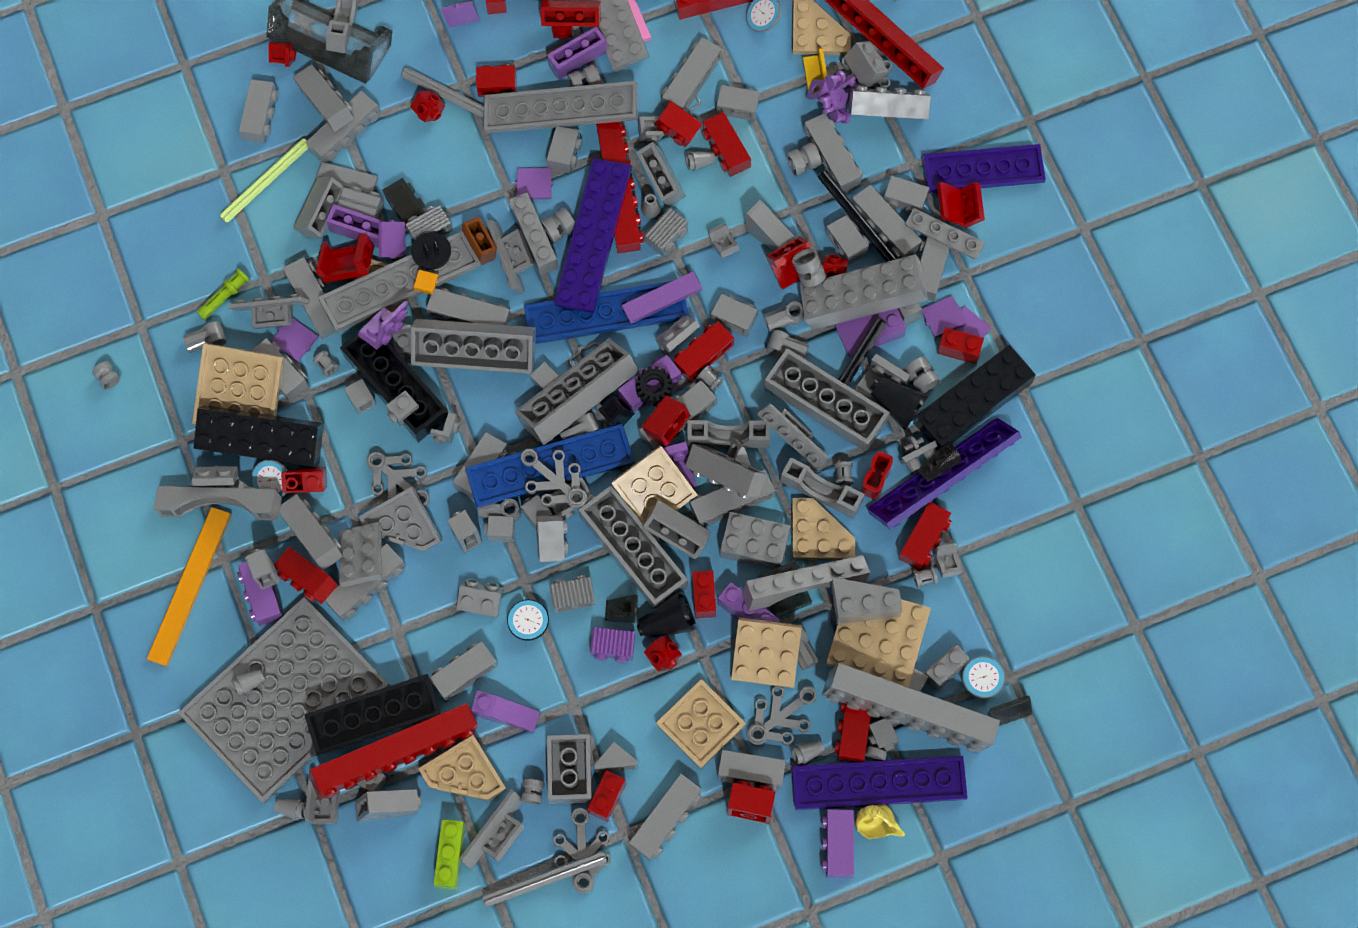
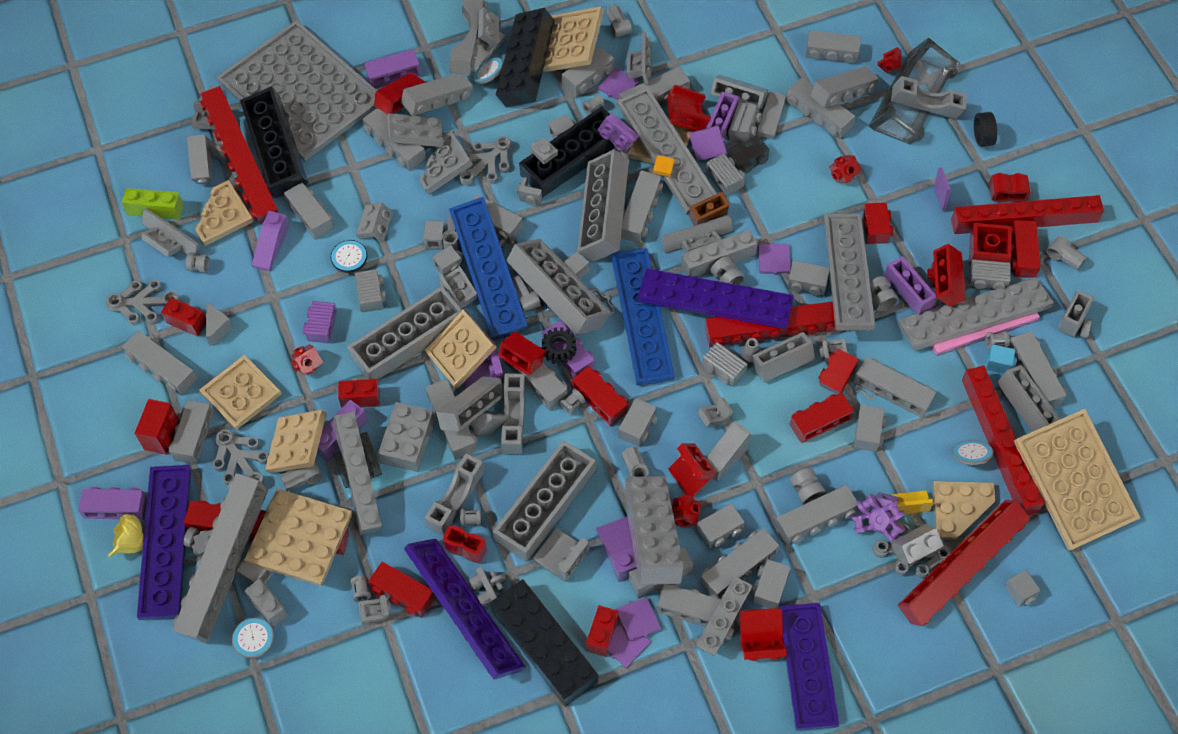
camera: 90 degrees right, 10 degrees down
(189, 587) = (400, 24): light orange tile -> none
(229, 288) = (664, 36): lime pin -> none
(246, 682) = (313, 59): light grey cone -> none
(262, 568) = (401, 56): light grey brick -> none
(264, 180) = (765, 54): yellowish green axle -> none
(304, 480) = (485, 92): red slope -> none
(431, 251) = (696, 171): black piece -> none
(443, 91) = (864, 182): light grey axle -> none
(464, 531) = (430, 203): light grey brick -> none
(544, 878) = (121, 273): light grey axle -> none
(551, 538) = (419, 268): light grey brick -> none
(555, 481) = (471, 267): light grey plant -> none
(569, 769) = (211, 285): light grey brick -> none
(616, 411) = (538, 319): black brick -> none
(622, 609) = (351, 330): clear smoke slope -> none
(661, 297) = (653, 358): medium lavender tile -> none
(668, 618) = (338, 364): black cone -> none
(676, 529) = (419, 366): light grey brick -> none
(677, 334) = (616, 371): light grey bracket -> none
(698, 160) = (803, 393): light grey cone -> none
(781, 341) = (606, 466): light grey piece -> none
(793, 432) = (513, 467): light grey bracket -> none
(806, 751) = (202, 476): light grey cone -> none
(809, 268) = (676, 476): light grey wheel -> none
(818, 533) = (413, 495): tan plate -> none
(856, 216) = (741, 533): black axle -> none
(862, 351) = (593, 532): black axle -> none
(864, 601) = (325, 514): light grey wedge -> none
(889, 103) = (875, 568): light grey brick -> none
(898, 400) = (539, 563): black cone -> none
(920, 374) = (571, 590): light grey wheel -> none
(940, 462) = (473, 602): clear smoke slope -> none
(1011, 710) = (218, 663): clear smoke slope -> none

